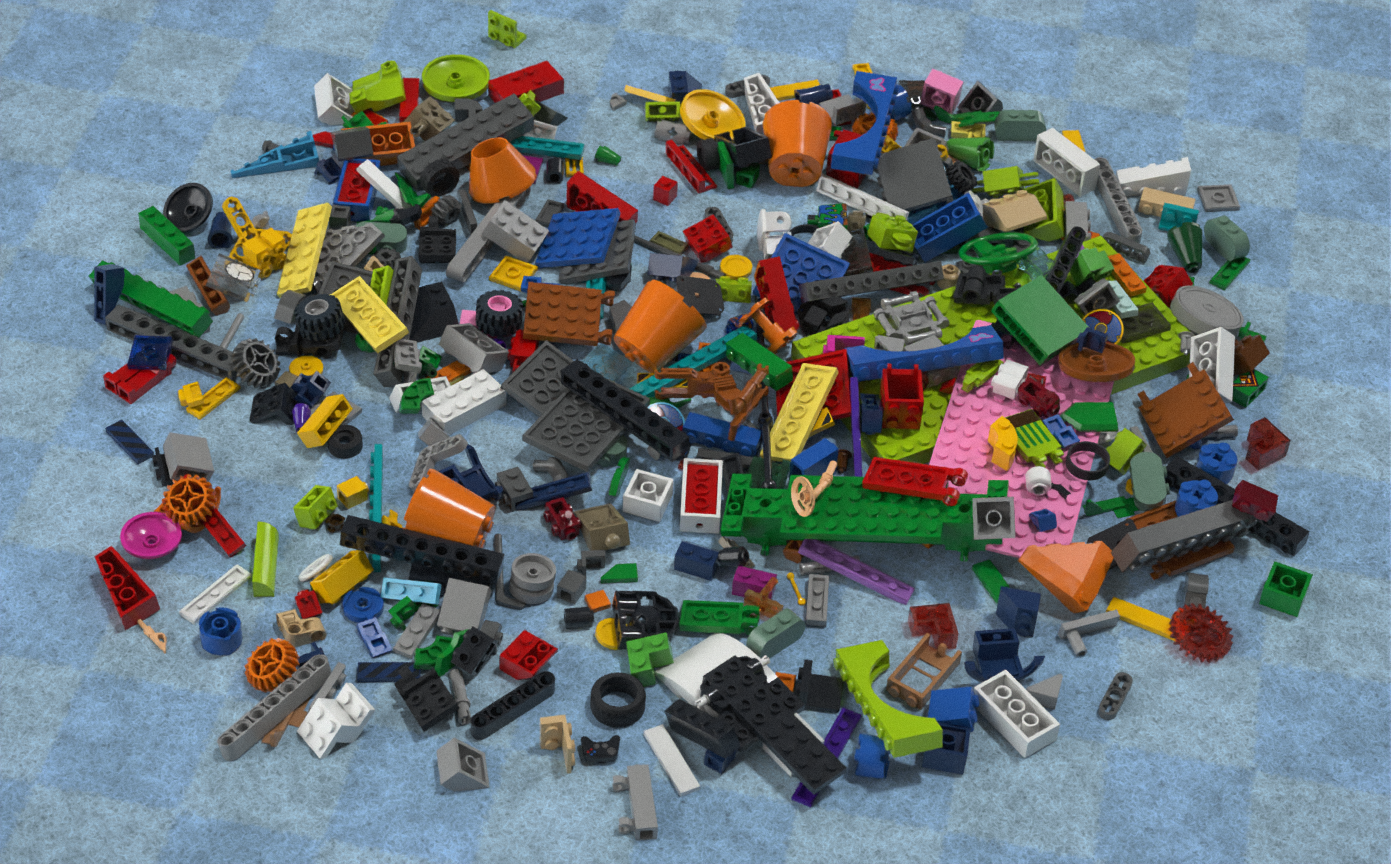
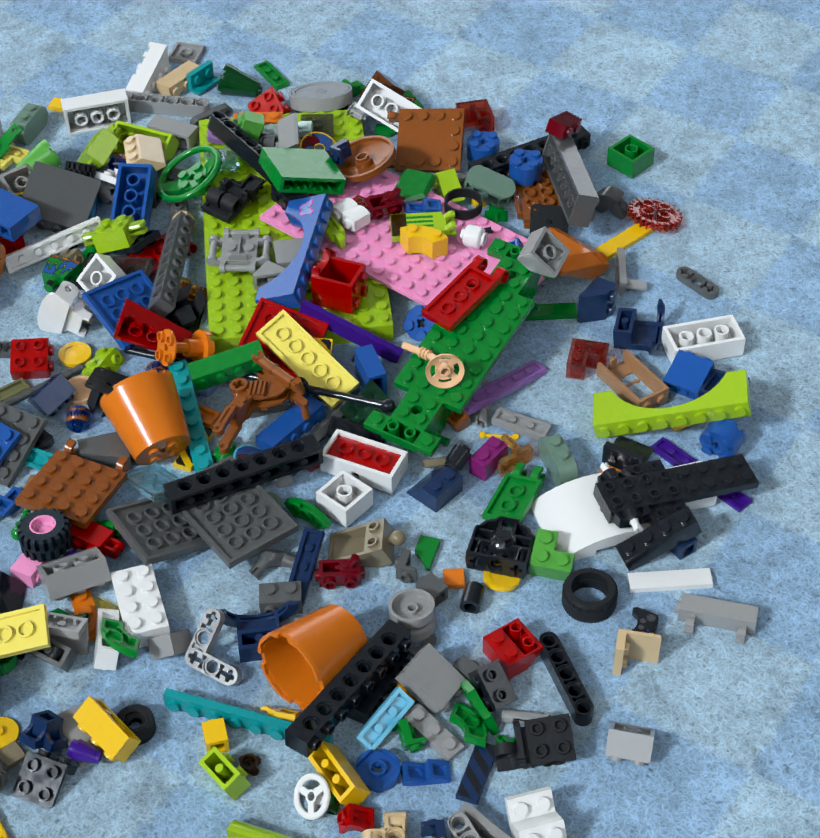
camera: 65 degrees left, 0 degrees up
(838, 342) = (241, 309): dark pink bracket -> none
(870, 413) = (344, 307): dark blue slope -> none
(1047, 691) = (683, 313): light grey slope -> none
(1227, 238) = (247, 58): sand green brick -> none

